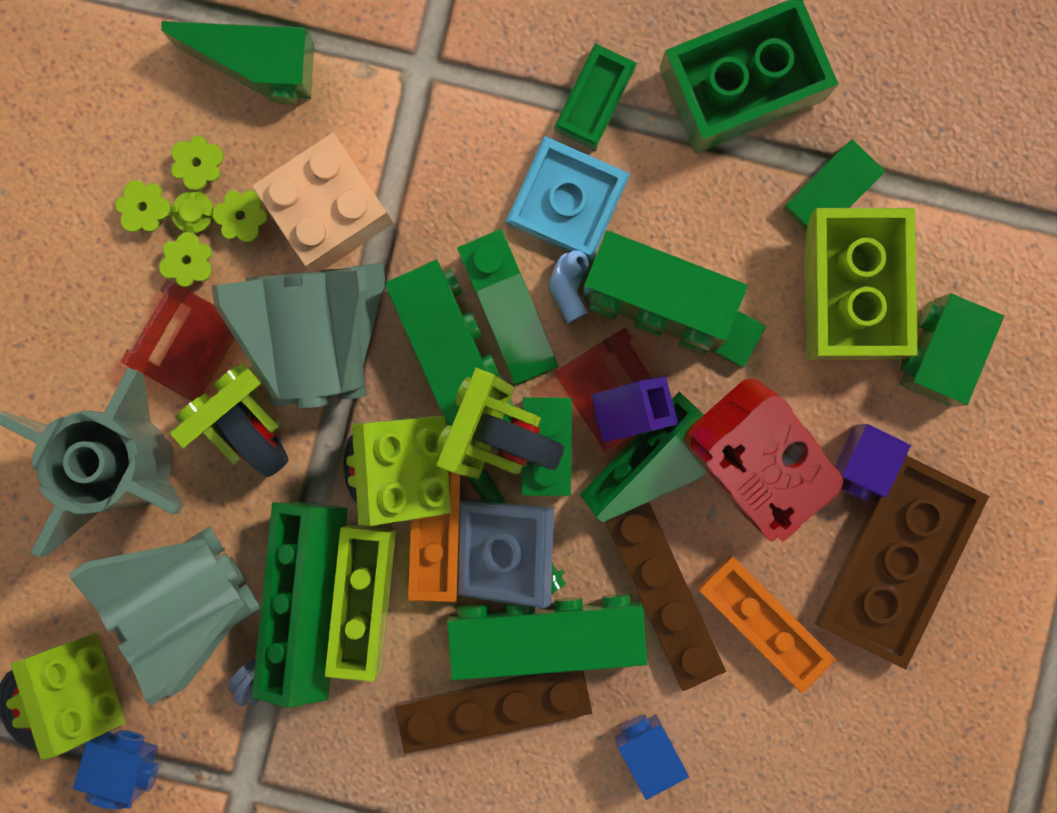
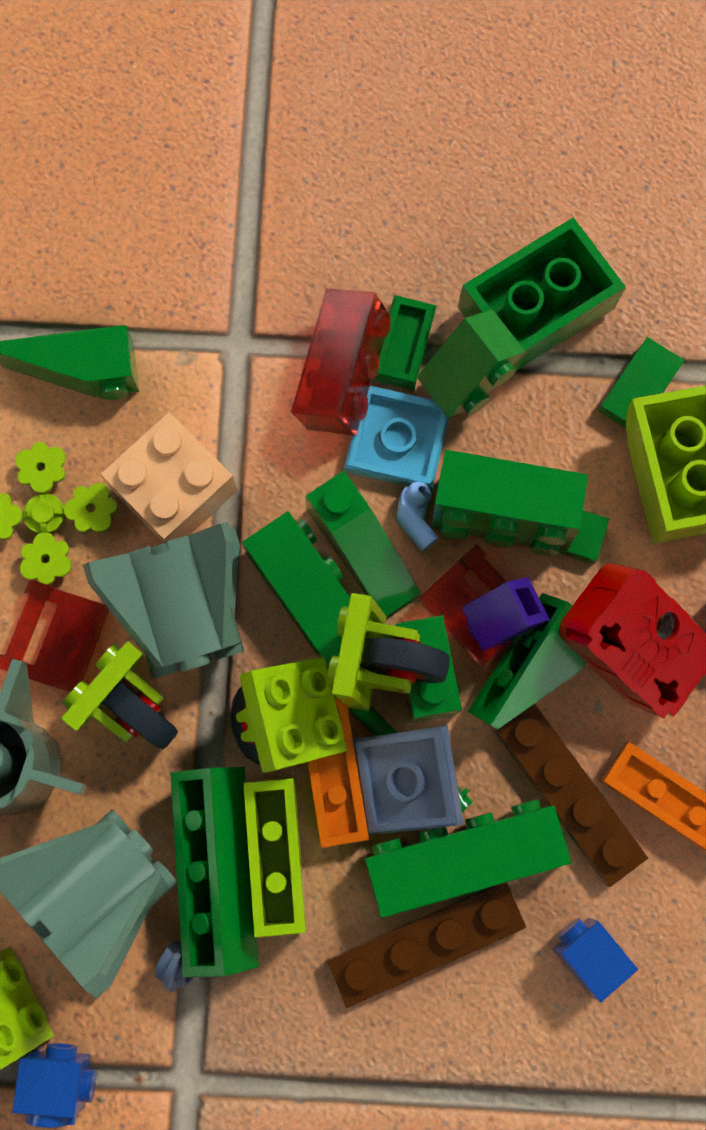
camera: 20 degrees left, 10 degrees down
(524, 107) = (341, 362): none -> clear red brick
(657, 138) = (471, 364): none -> green brick

